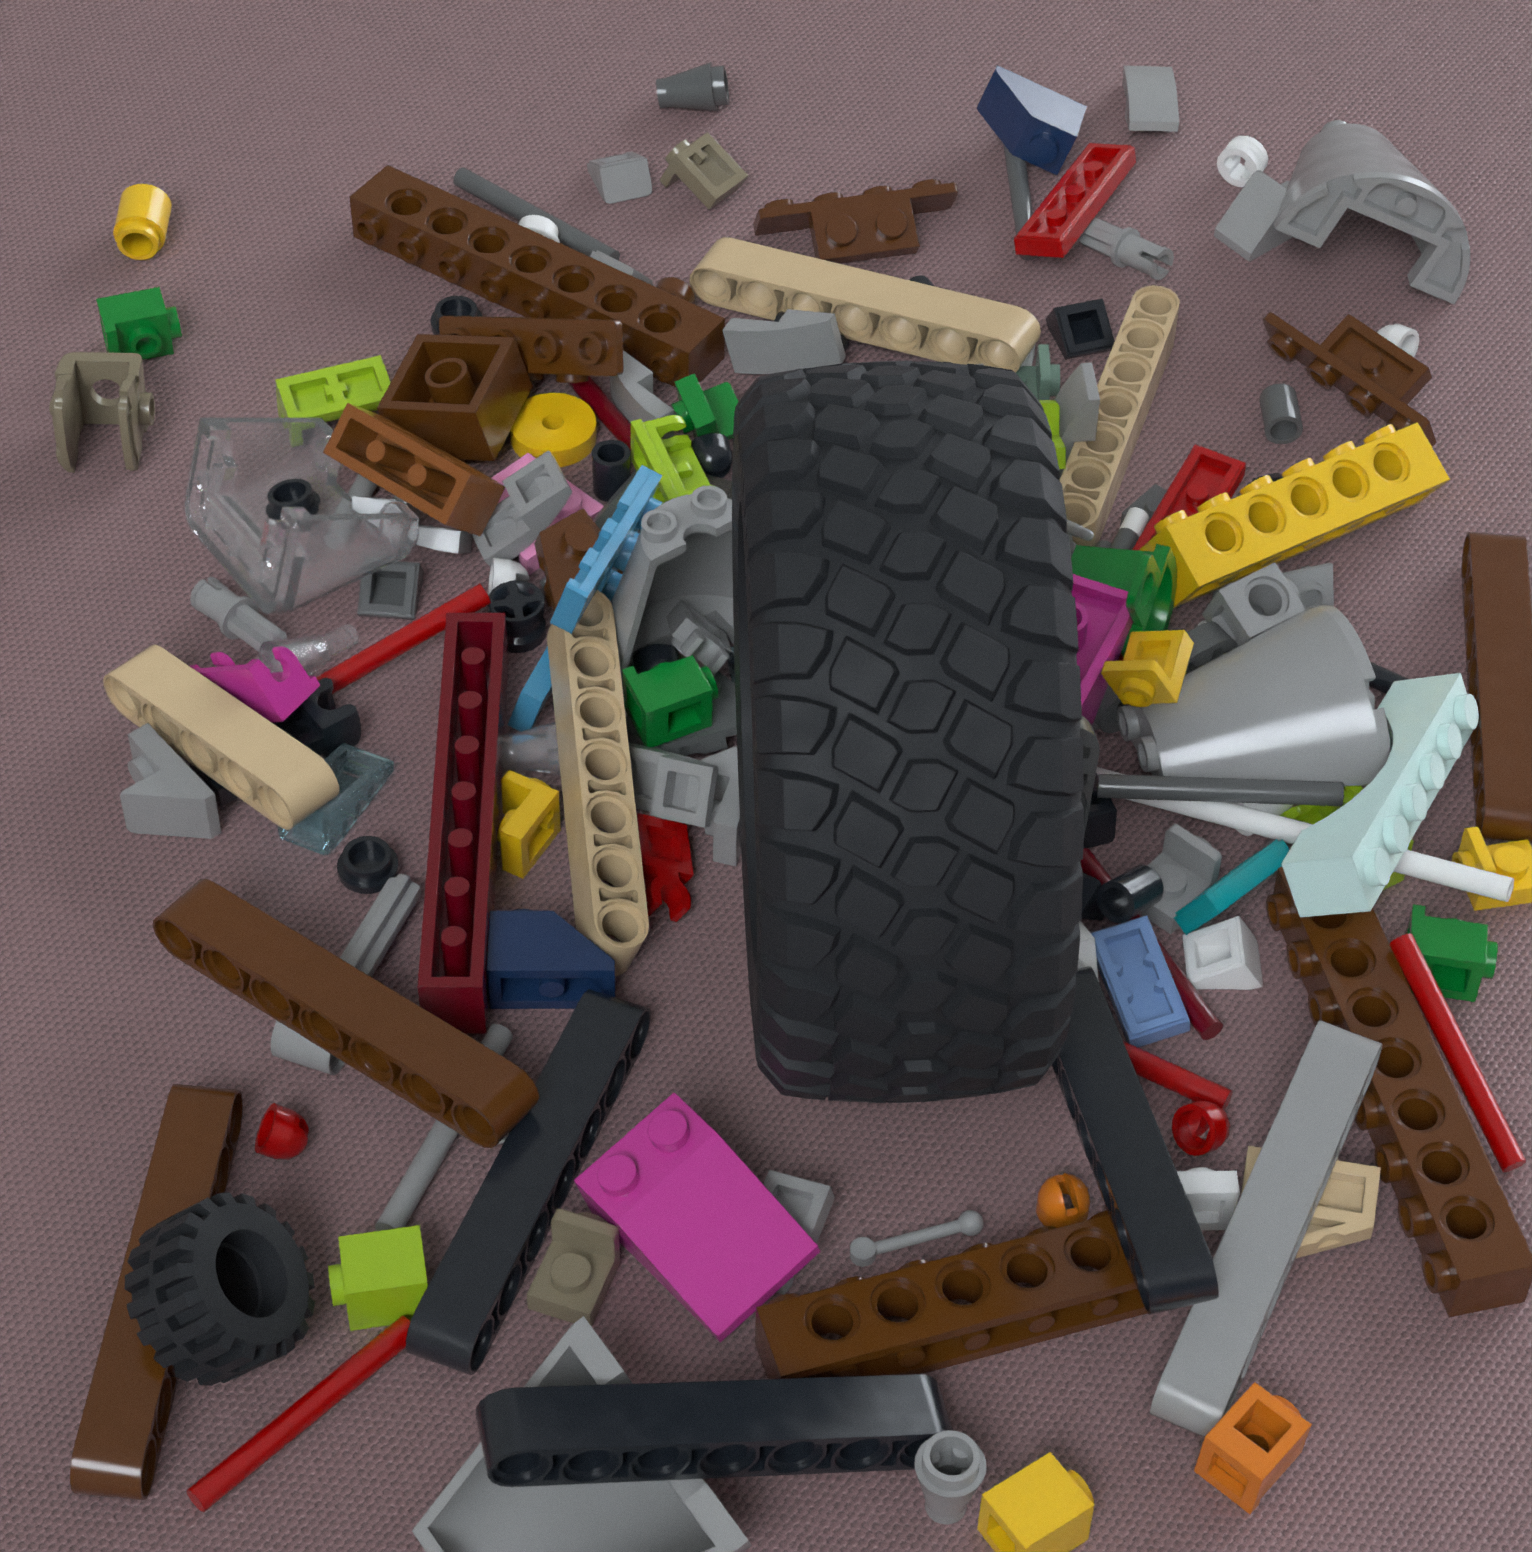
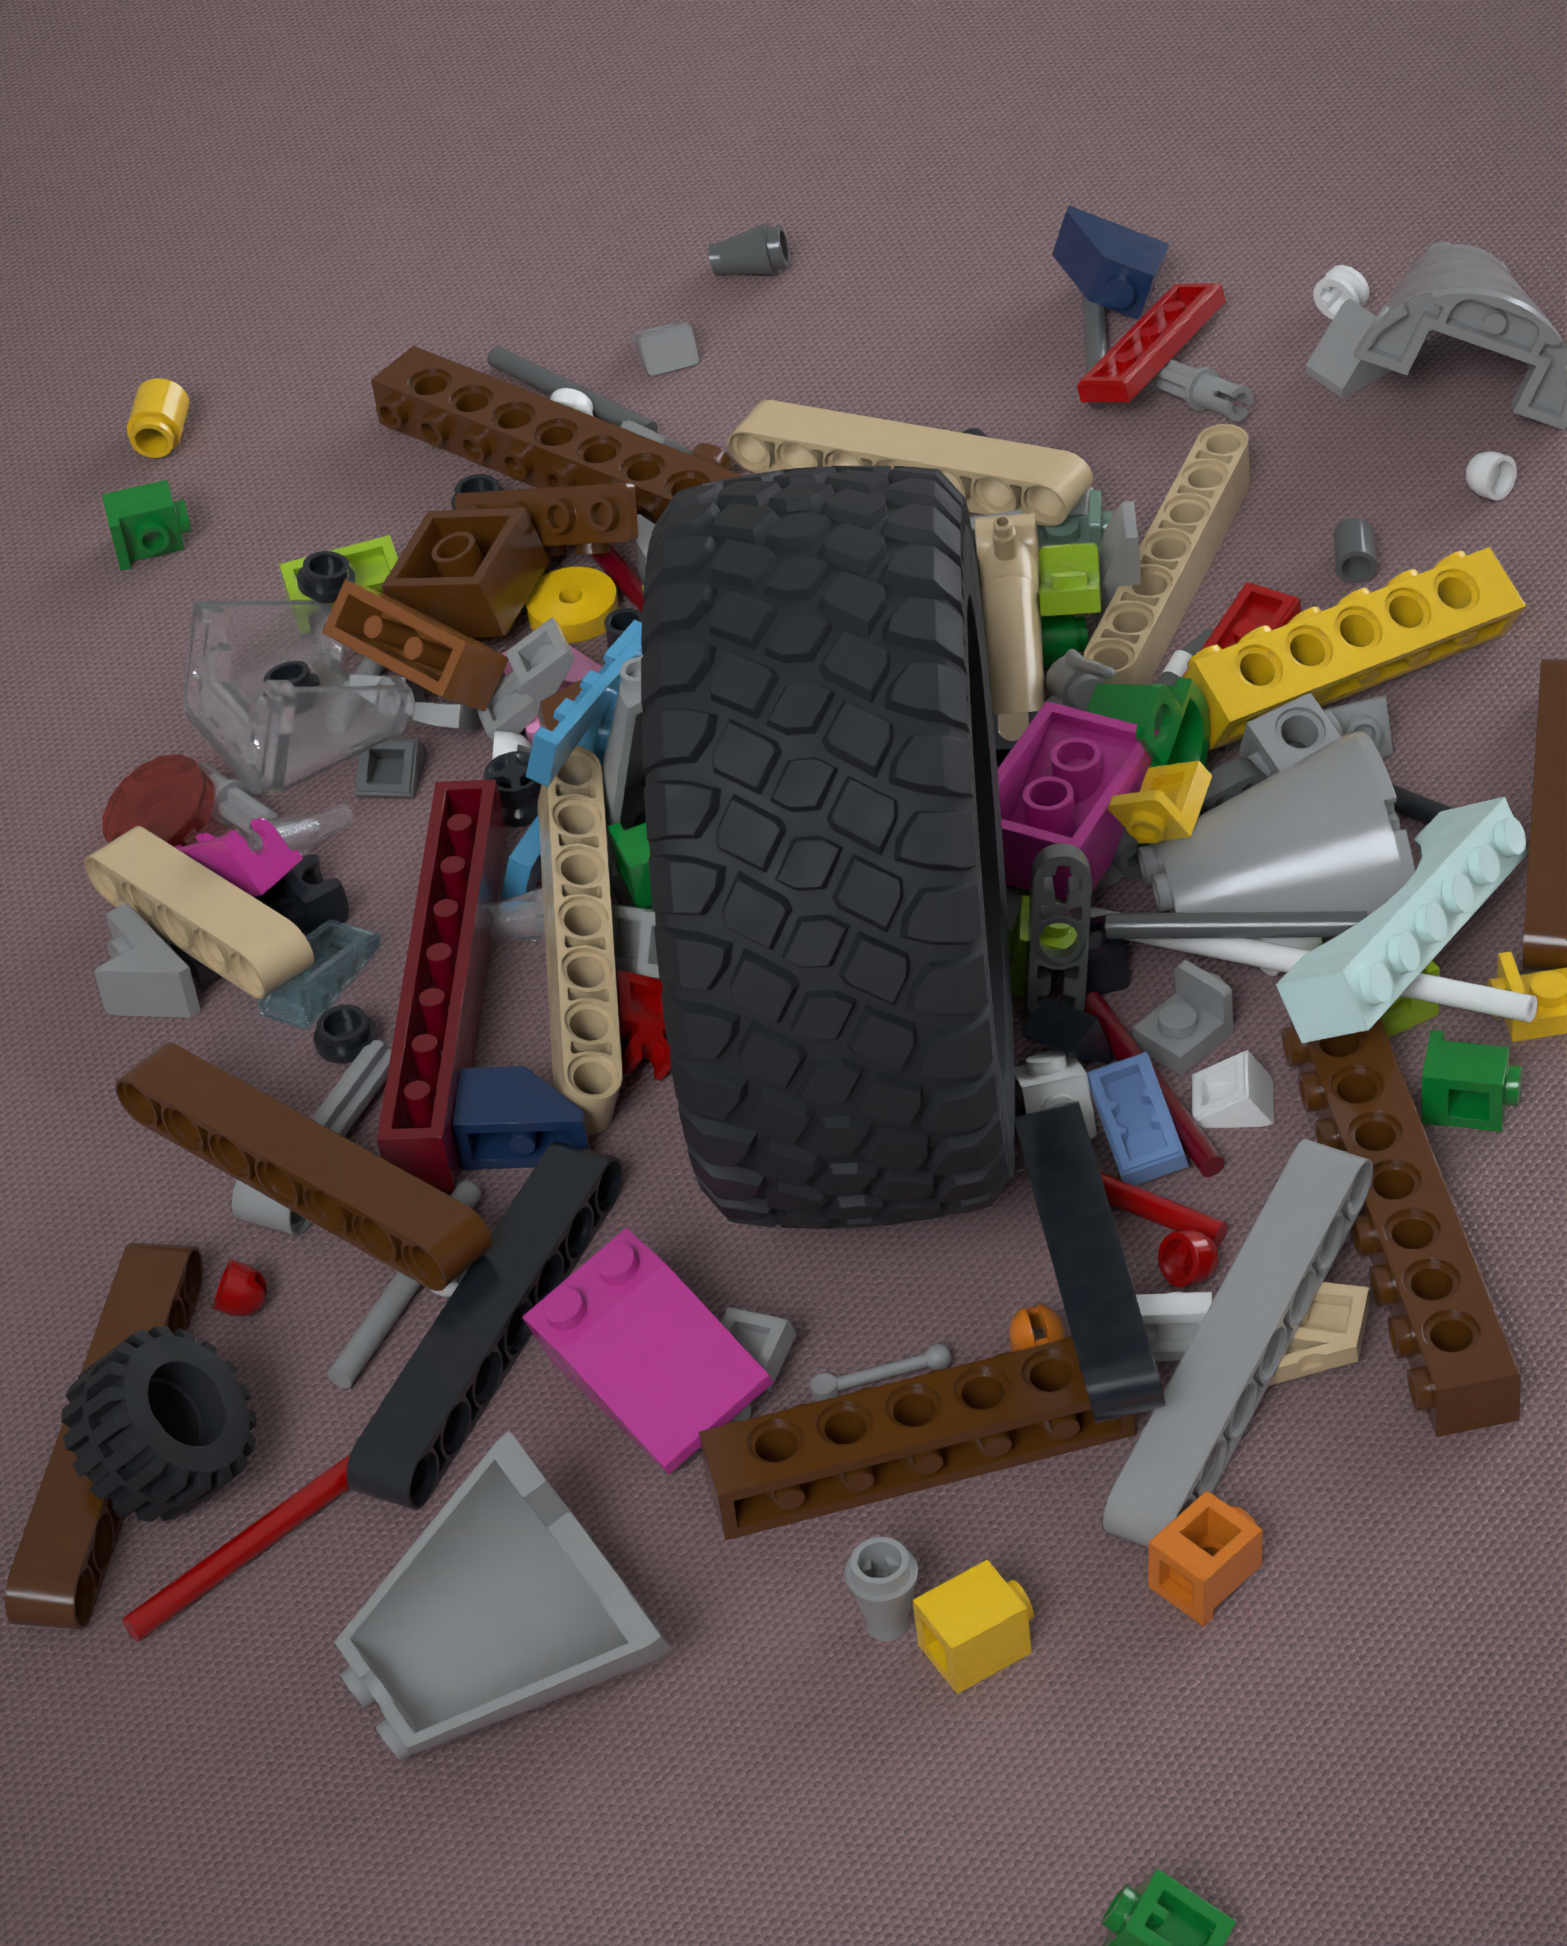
camera: 10 degrees right, 5 degrees down
(78, 404) = (76, 600): dark tan piece -> none
(171, 611) = (163, 797): none -> clear red tile
(323, 395) = (324, 576): none -> black plate
(379, 1276) = (323, 1415): lime brick -> none
(404, 639) = (393, 815): red bar -> none
(528, 822) = (512, 988): yellow bracket -> none
(576, 1267) = (529, 1403): dark tan bracket -> none
(704, 170) = (752, 334): dark tan bracket -> none
(707, 1429) = (633, 1540): black beam -> none
(862, 225) = (918, 380): reddish brown bracket -> none
(1081, 328) = (1145, 473): black slope -> none
(1130, 893) = (1131, 1031): black hinge -> none
(1150, 98) = (1247, 234): light grey slope -> none
(1231, 887) = (1234, 1027): teal tile -> none
(1360, 364) = (1448, 496): reddish brown bracket -> none
(1457, 1053) = (1466, 1176): red bar -> none

